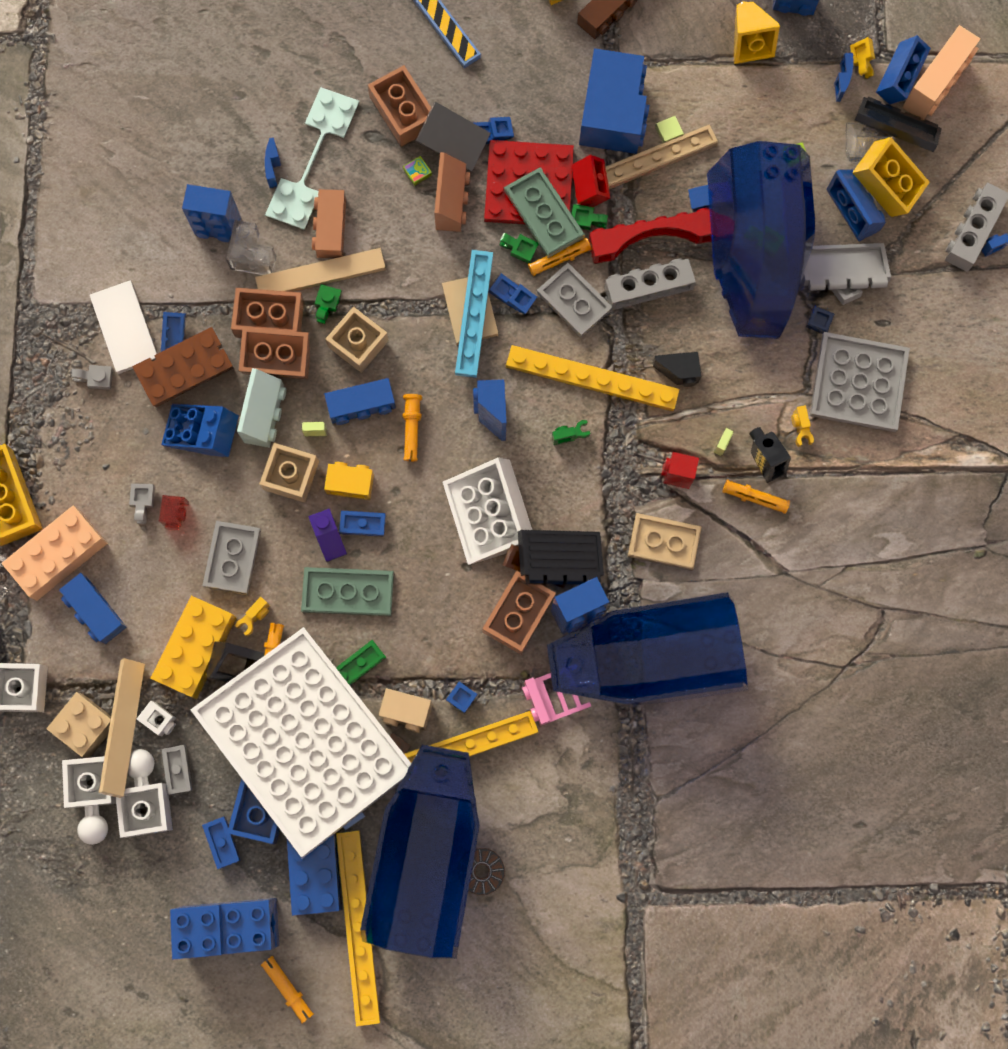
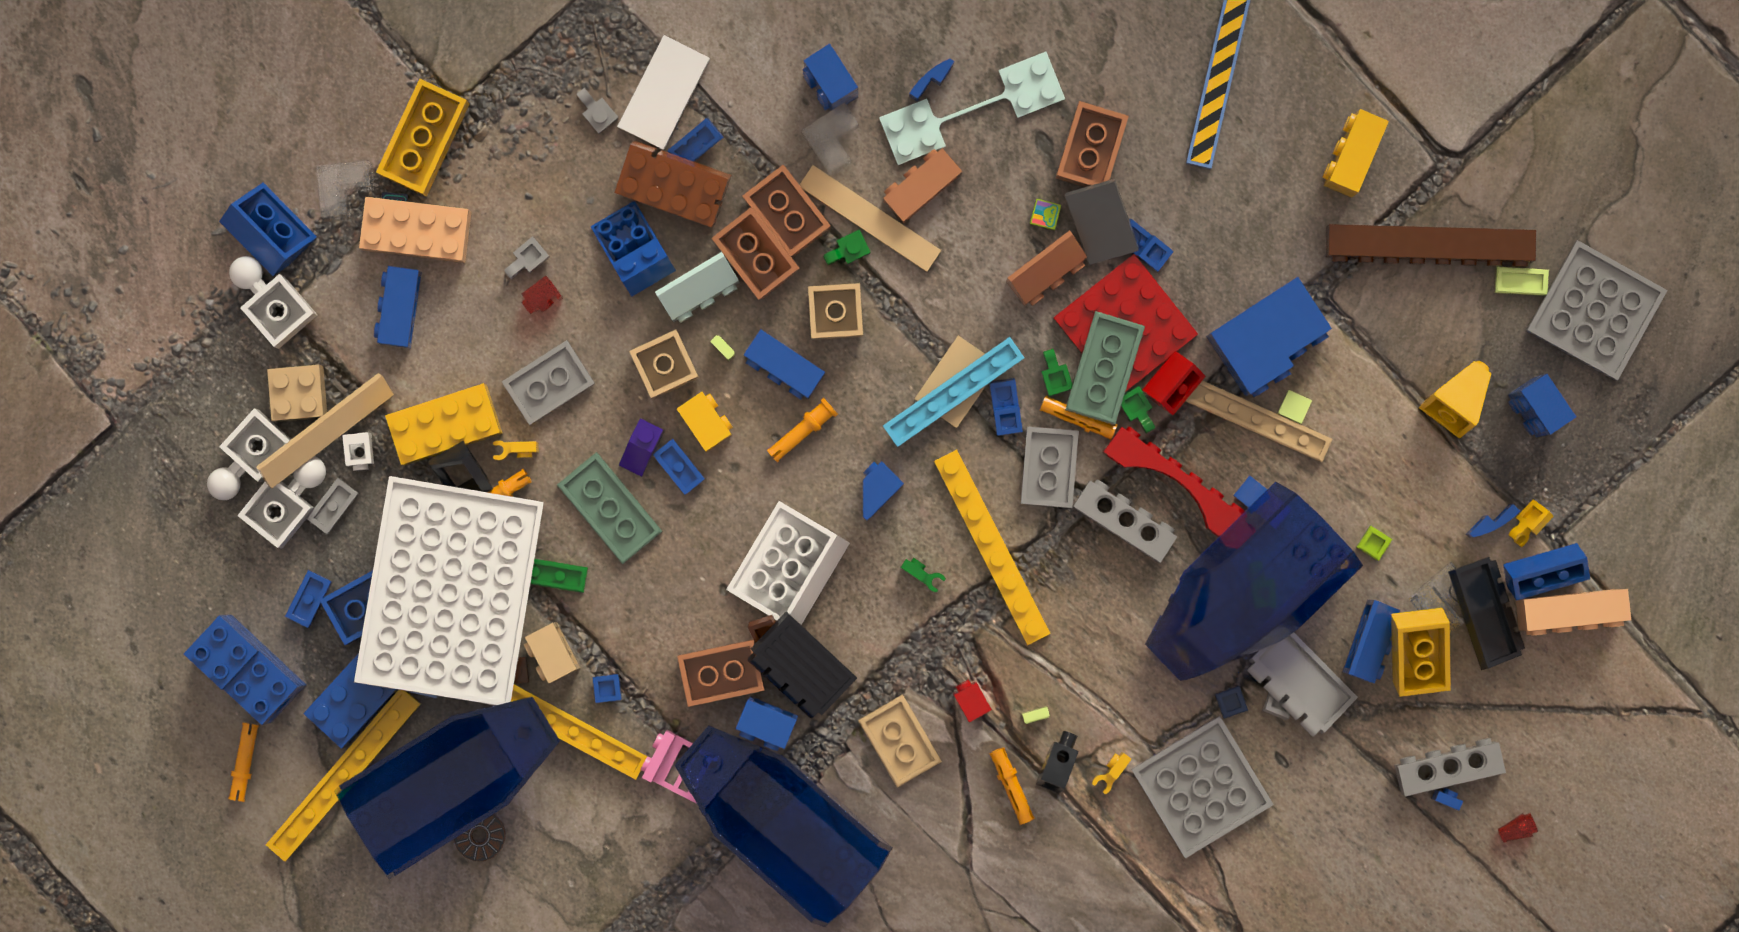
camera: 50 degrees right, 10 degrees up
(679, 367) = (1070, 618): black slope -> none

